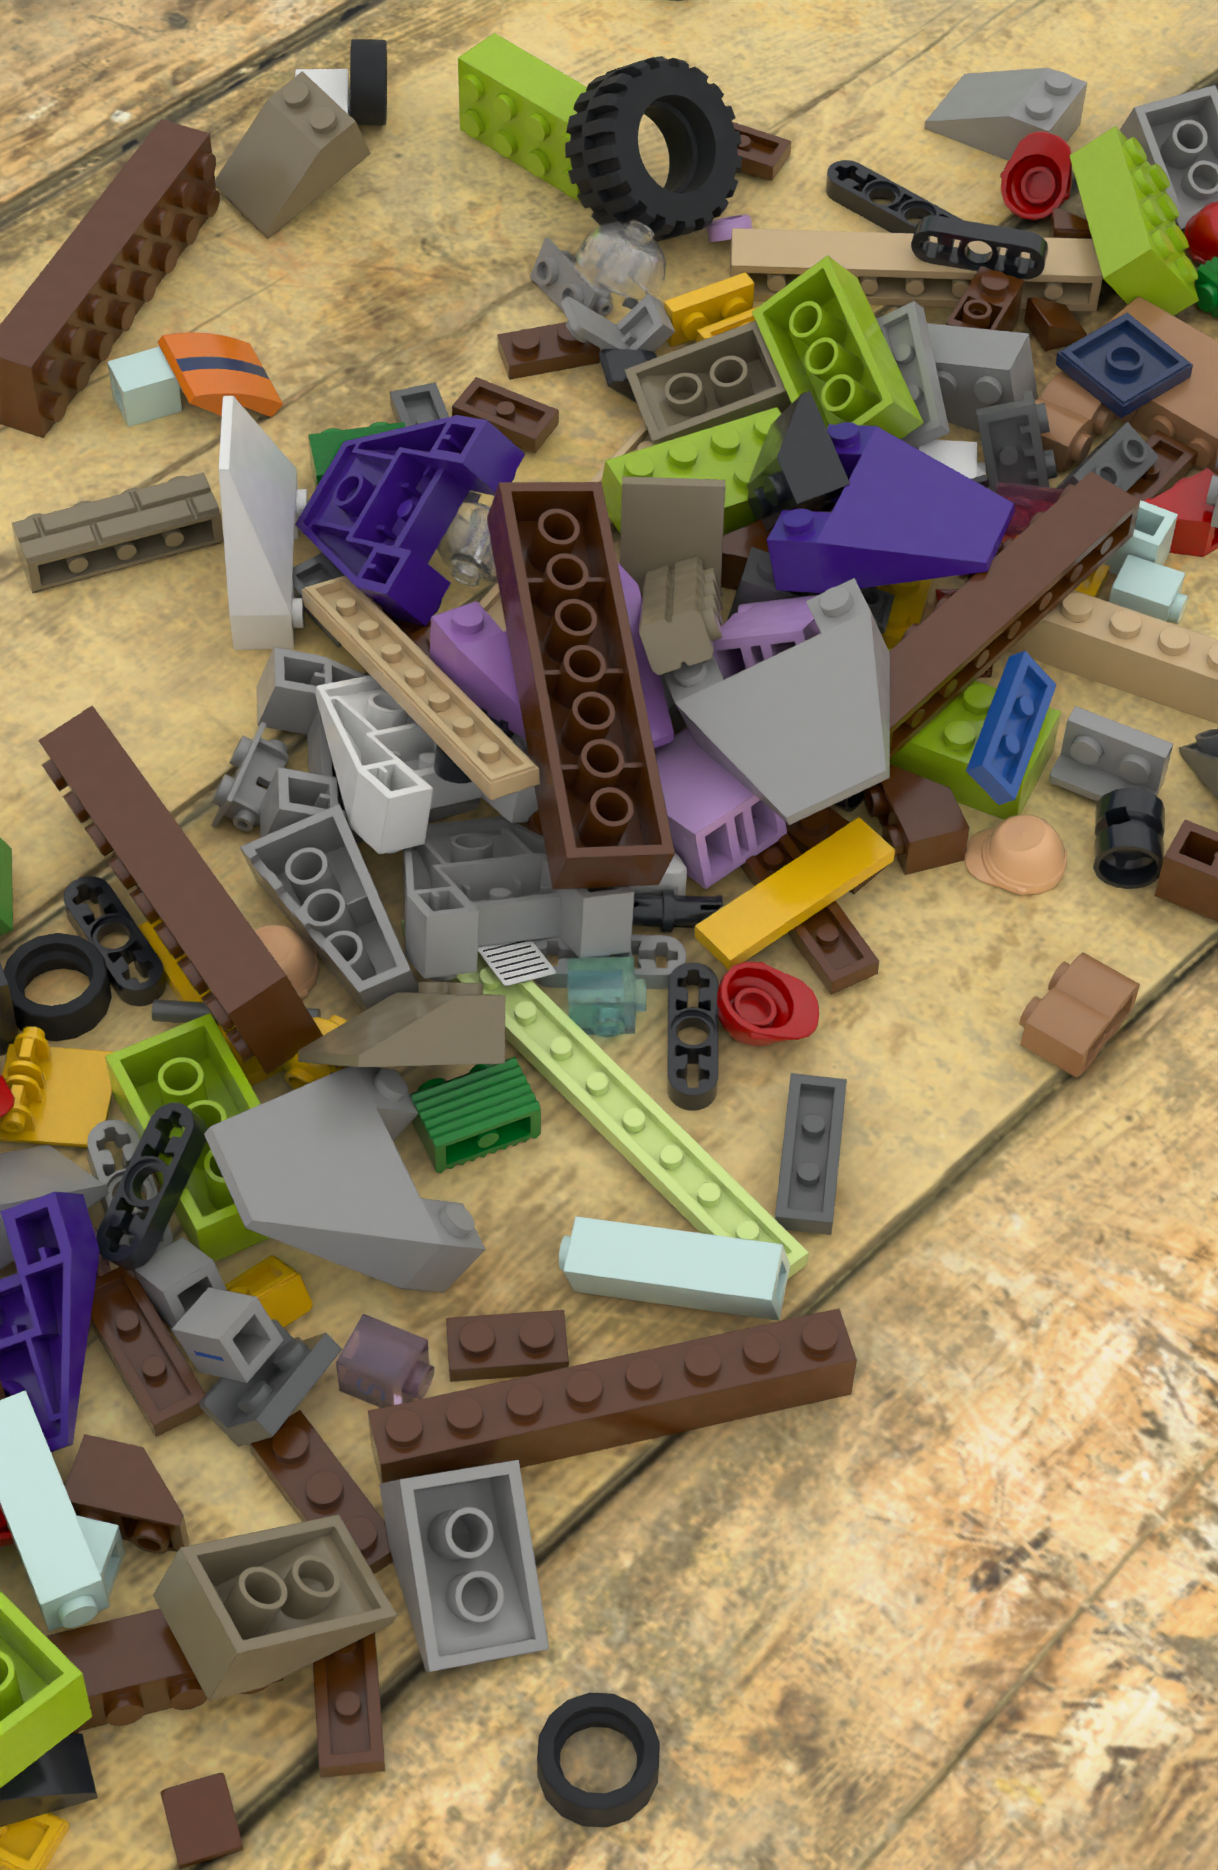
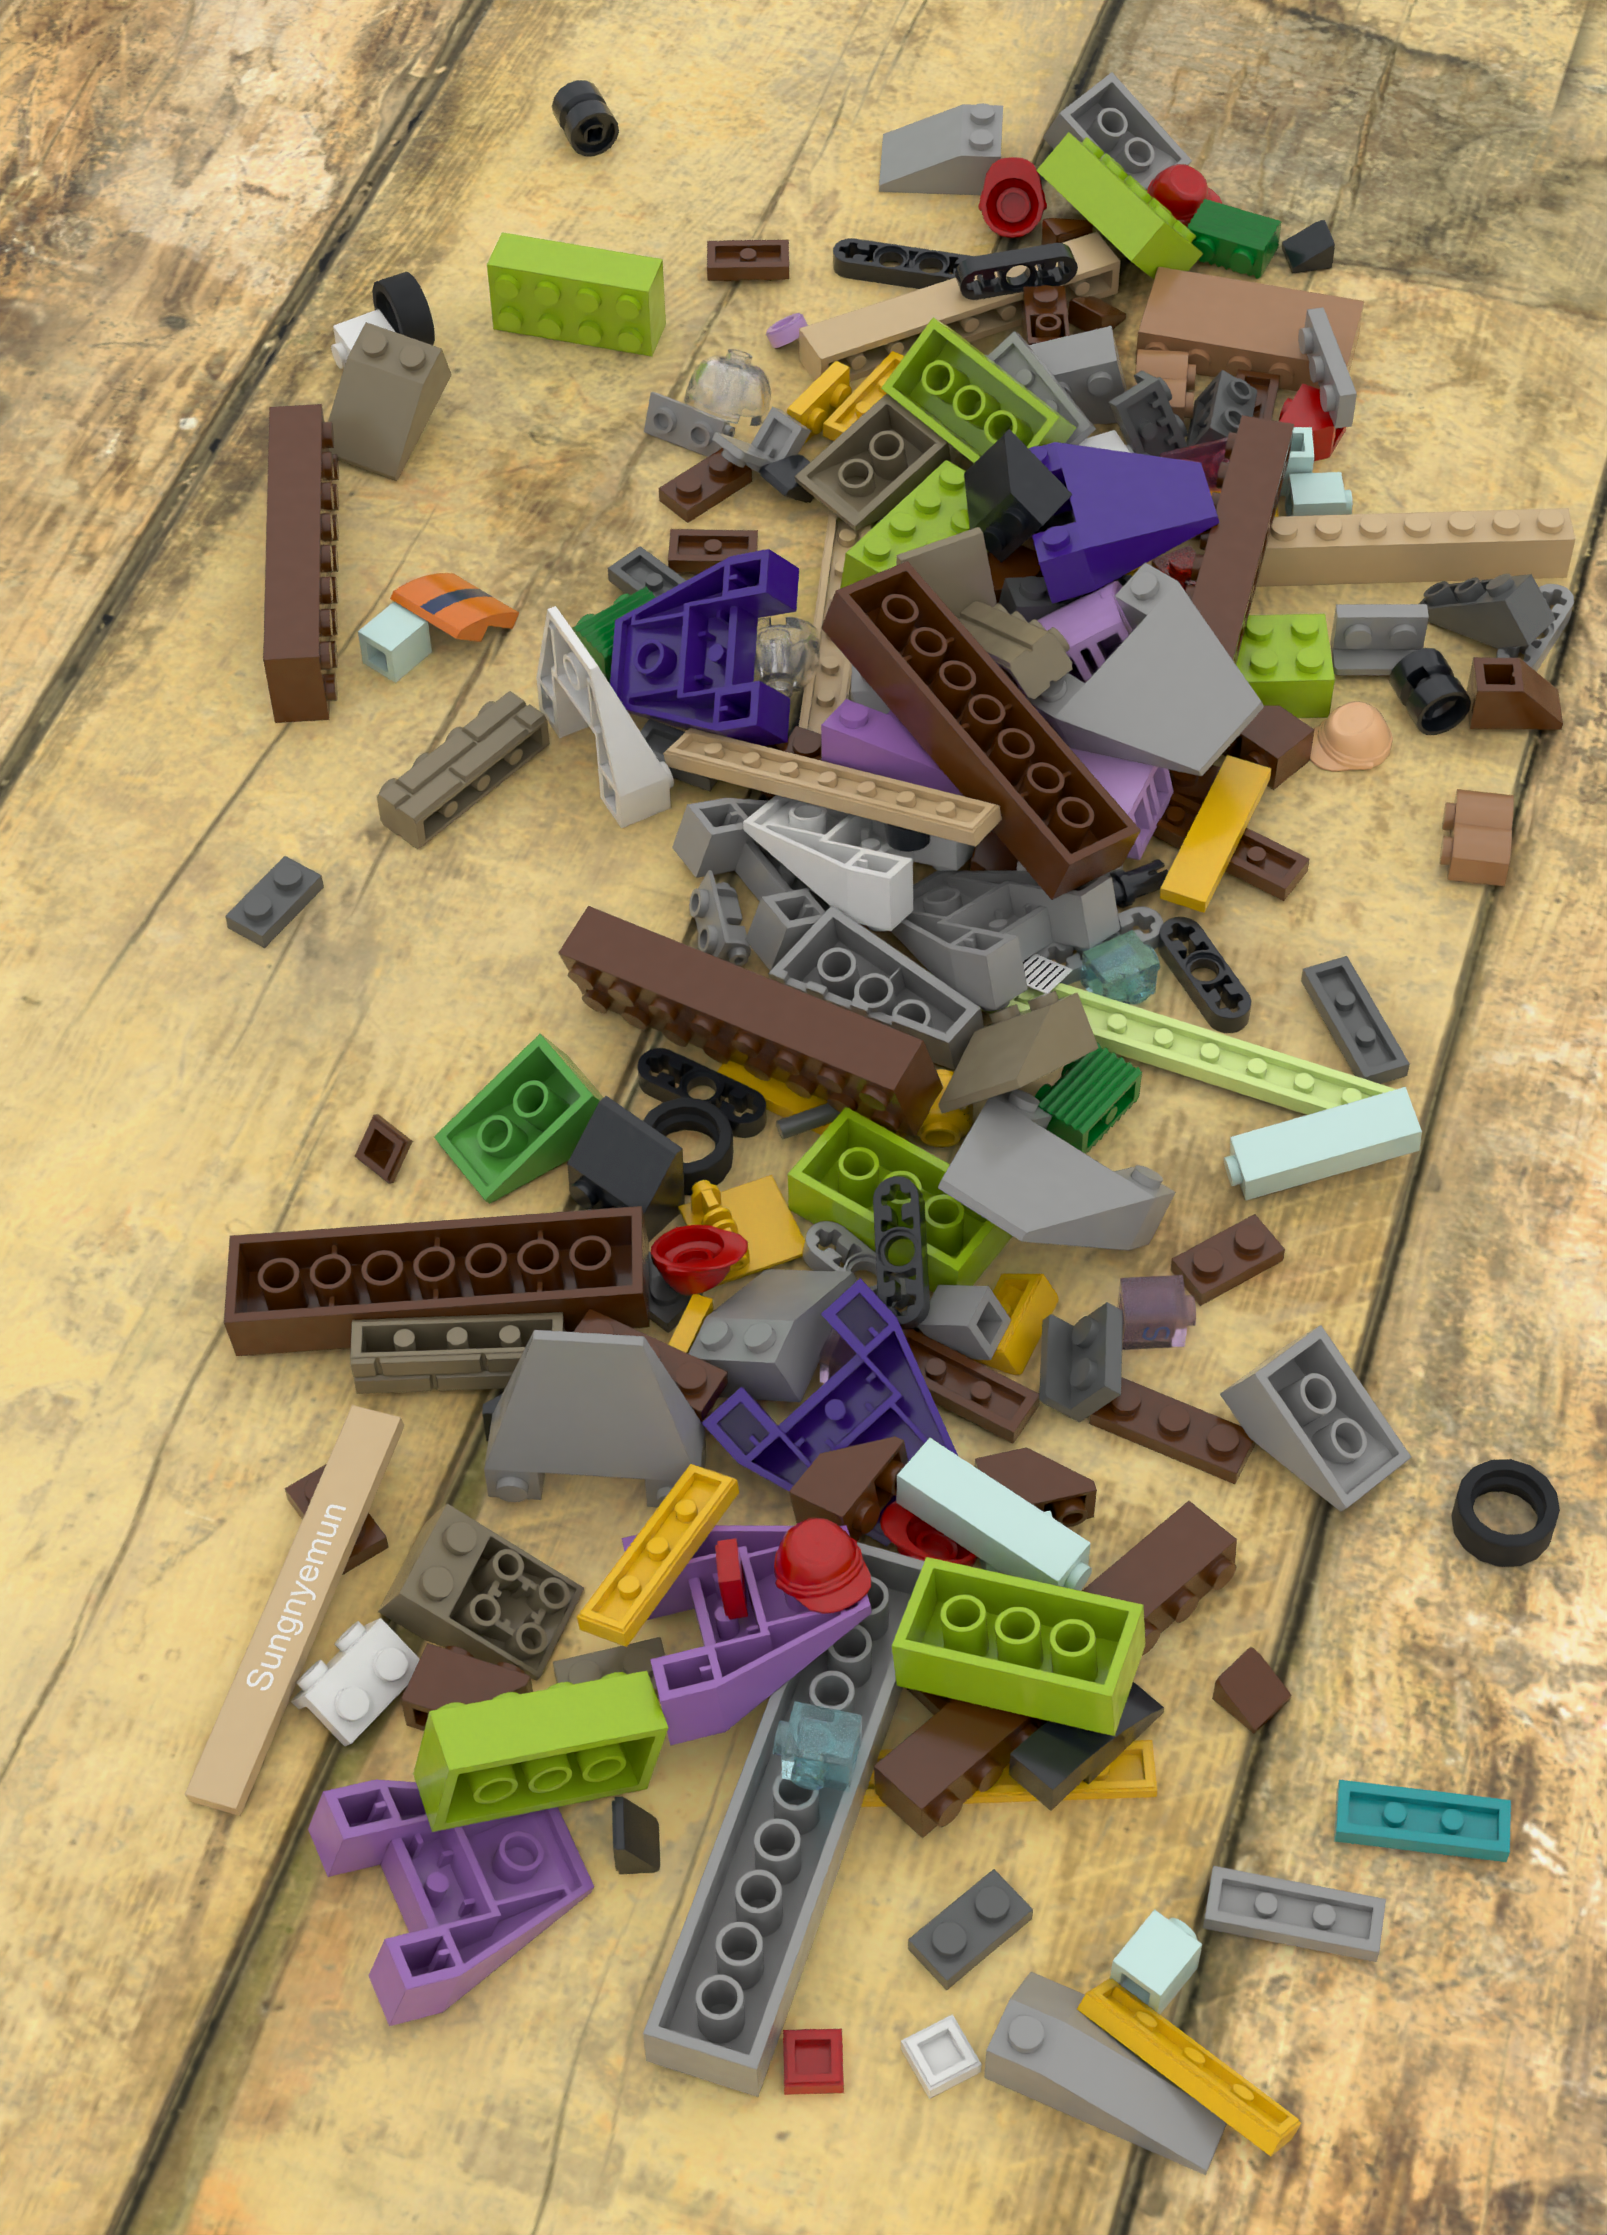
camera: 25 degrees left, 0 degrees up
(227, 1334) = (1035, 1336): light grey brick -> none
(269, 1603) = (1215, 1507): dark tan slope -> none
(349, 1710) = (1285, 1544): reddish brown plate -> none
(618, 1399) = (1340, 1261): reddish brown brick -> none
(697, 138) = (705, 282): black tyre -> none
(765, 1005) = (1248, 928): red hat -> none
(1011, 728) = (1309, 638): blue plate -> none
(1124, 365) = (1187, 325): dark blue tile -> none

